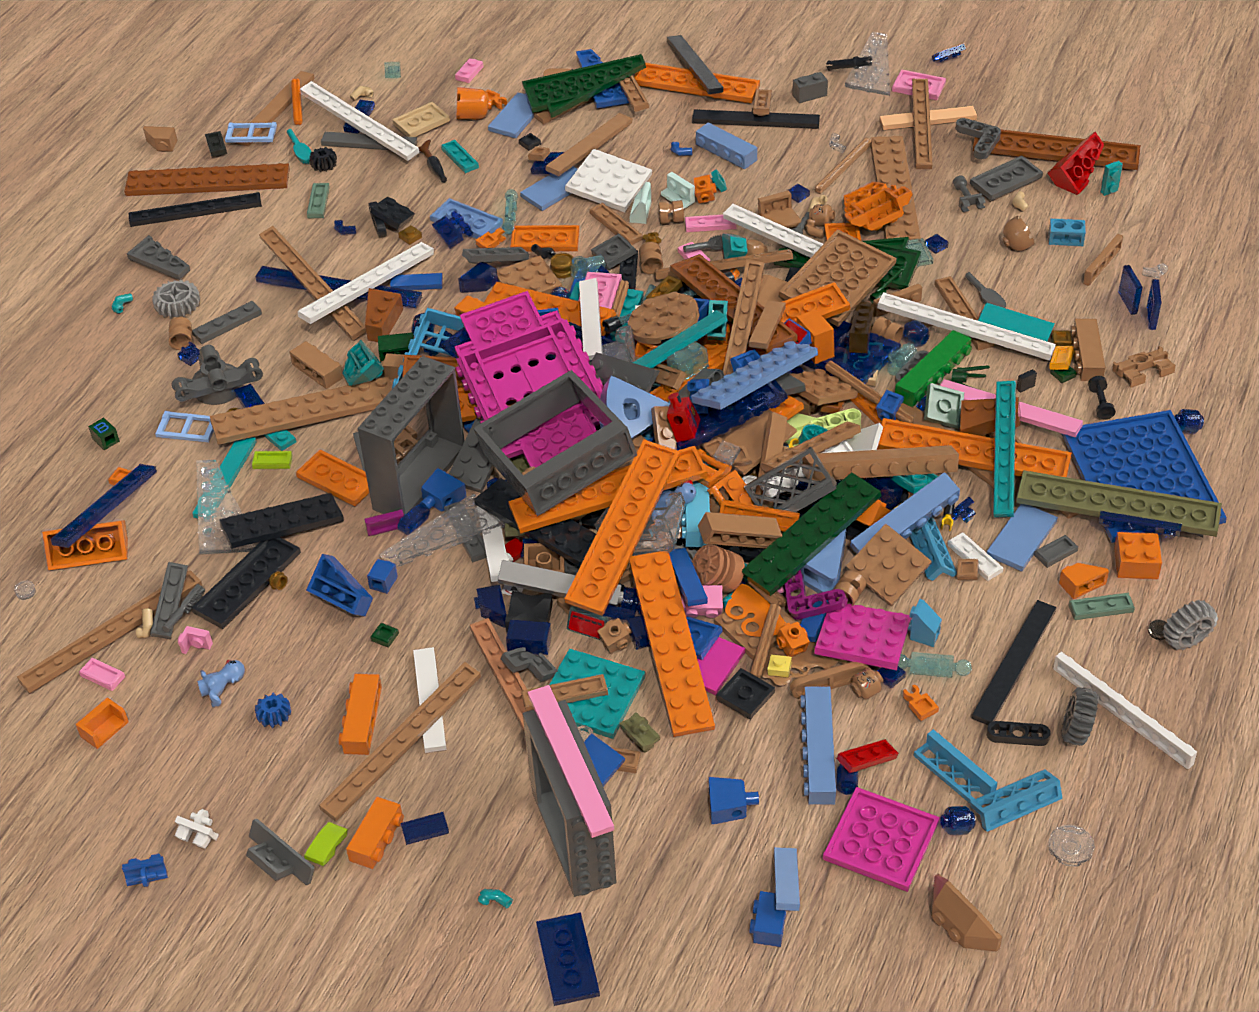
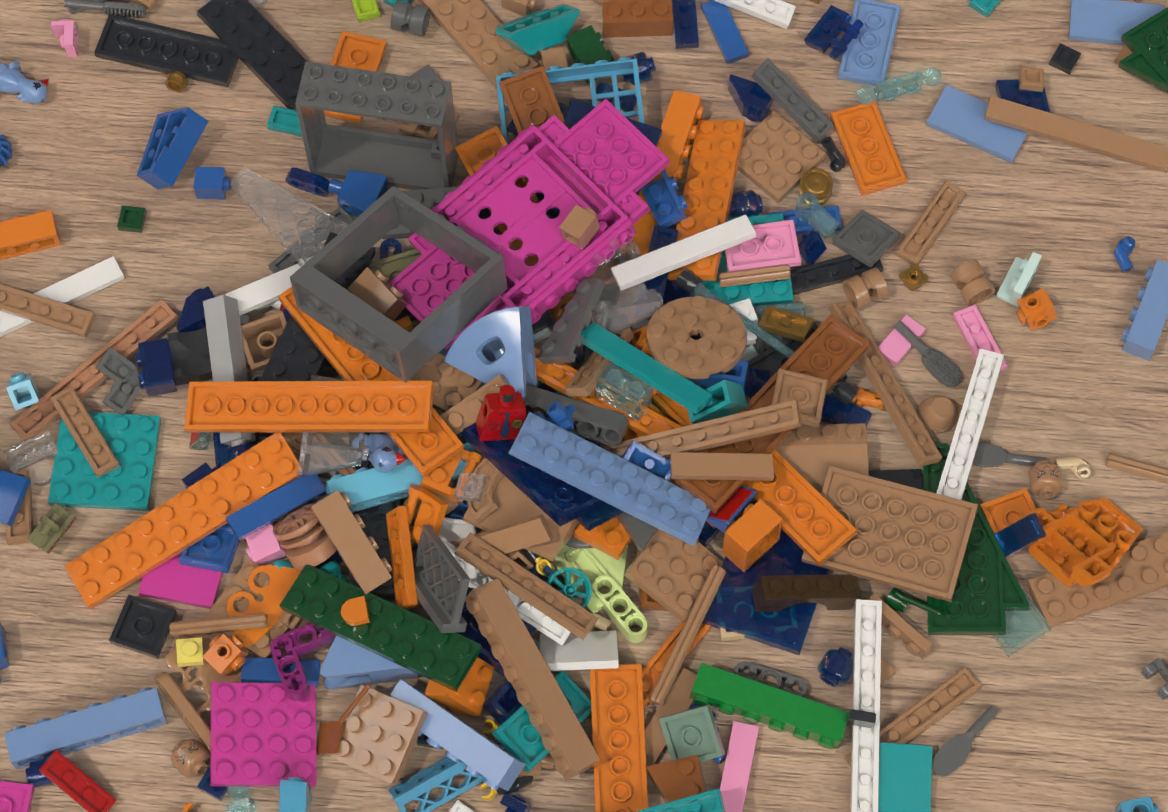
camera: 70 degrees right, 20 degrees up
(309, 431) = (410, 18): none -> dark grey wheel
(354, 521) = (284, 121): none -> teal tile
(383, 522) = (290, 151): magenta tile -> none
(491, 240) = (831, 83): orange plate -> none
(508, 725) = (22, 390): none -> medium azure brick
(559, 340) = (579, 226): none -> medium nougat brick
(608, 180) = (1015, 184): white plate -> none
(615, 635) = (183, 456): medium nougat brick -> none
(641, 205) = (974, 243): light aqua tile -> none
(718, 180) = (1068, 323): teal tile -> none
(726, 283) = (805, 389): none -> medium nougat plate
(734, 246) = (928, 382): teal slope -> none
(778, 209) = (1025, 422): medium nougat bracket -> none
(798, 537) = (355, 611): none -> orange tile
(799, 193) = (1091, 435): clear blue plate -> none
(812, 230) = (1015, 475): medium nougat arm -> none
(852, 584) = (325, 692): medium nougat wheel -> none
(861, 223) = (1020, 534): none -> clear blue tile
(875, 596) = (331, 732): none -> dark orange piece
(888, 330) = (824, 627): medium nougat wheel -> none
(889, 405) = (662, 665): blue bracket -> none
(899, 358) = (782, 660): clear light blue piece -> none
(936, 243) = (1050, 650): clear blue plate -> none
(960, 375) = (772, 747): dark green plant -> none
(962, 318) = (861, 718): none -> black tile
(1017, 235) = (1100, 758): medium nougat cylinder -> none

